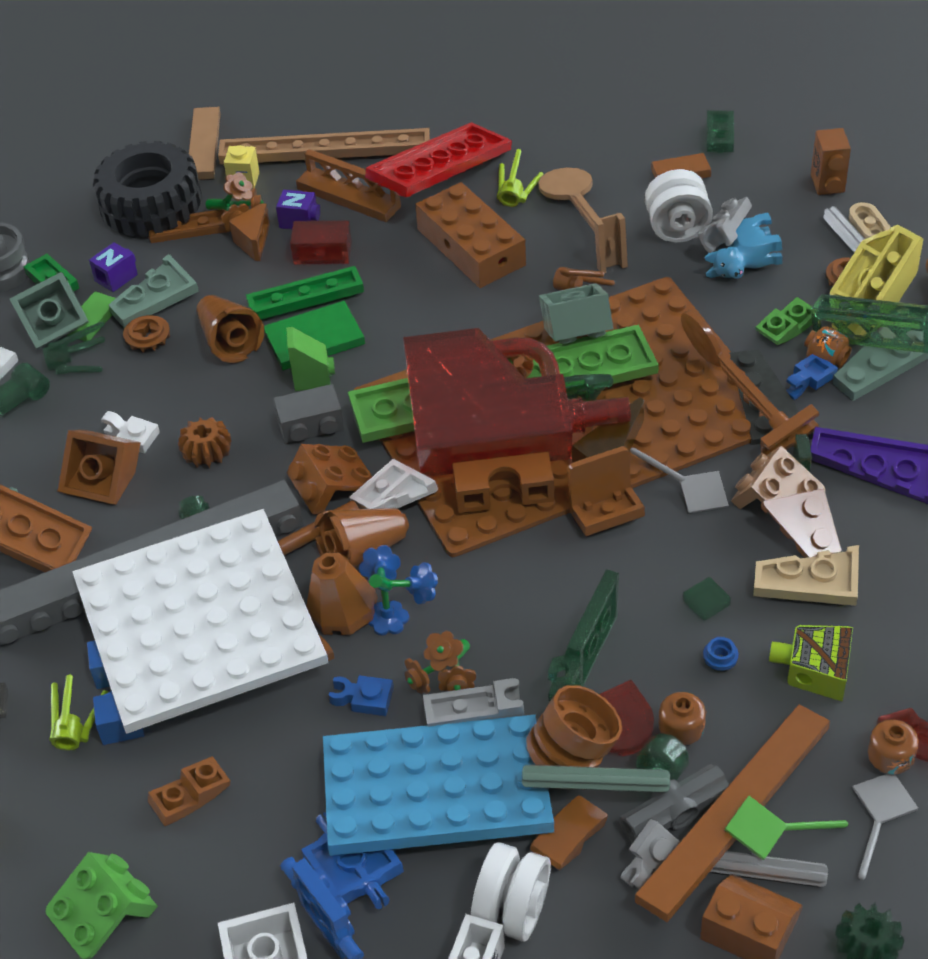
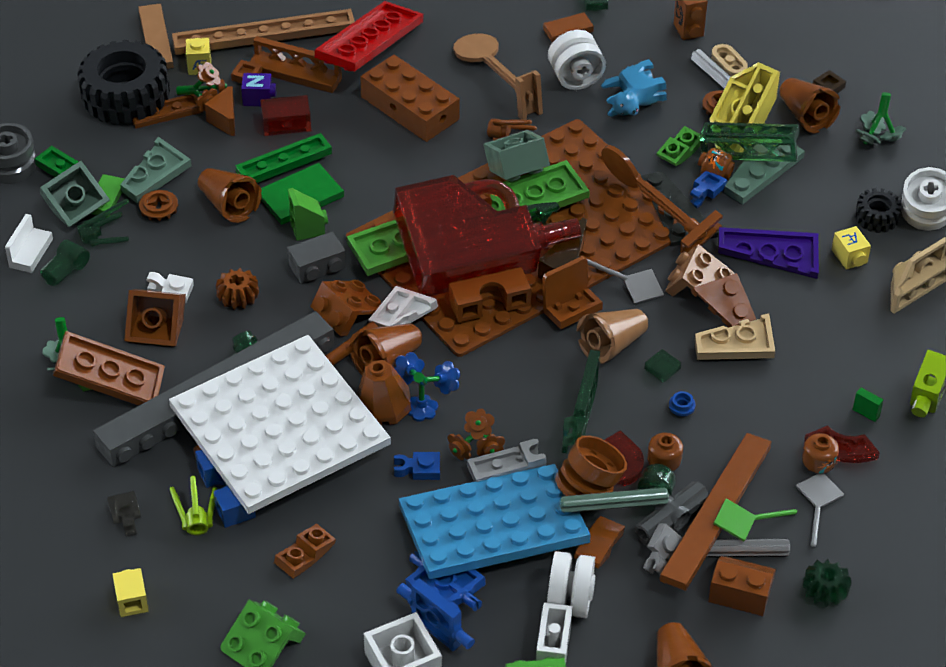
camera: 15 degrees left, 0 degrees up
(113, 267) = (113, 152): dark purple brick -> none
(291, 183) = (244, 67): none -> dark orange plate
(511, 191) = (434, 58): lime plant -> none
(646, 547) = (610, 331): none -> medium nougat cone
(724, 224) = (617, 71): light grey plate -> none
(802, 450) = (713, 246): clear green tile -> none
(816, 659) = (754, 399): torso -> none

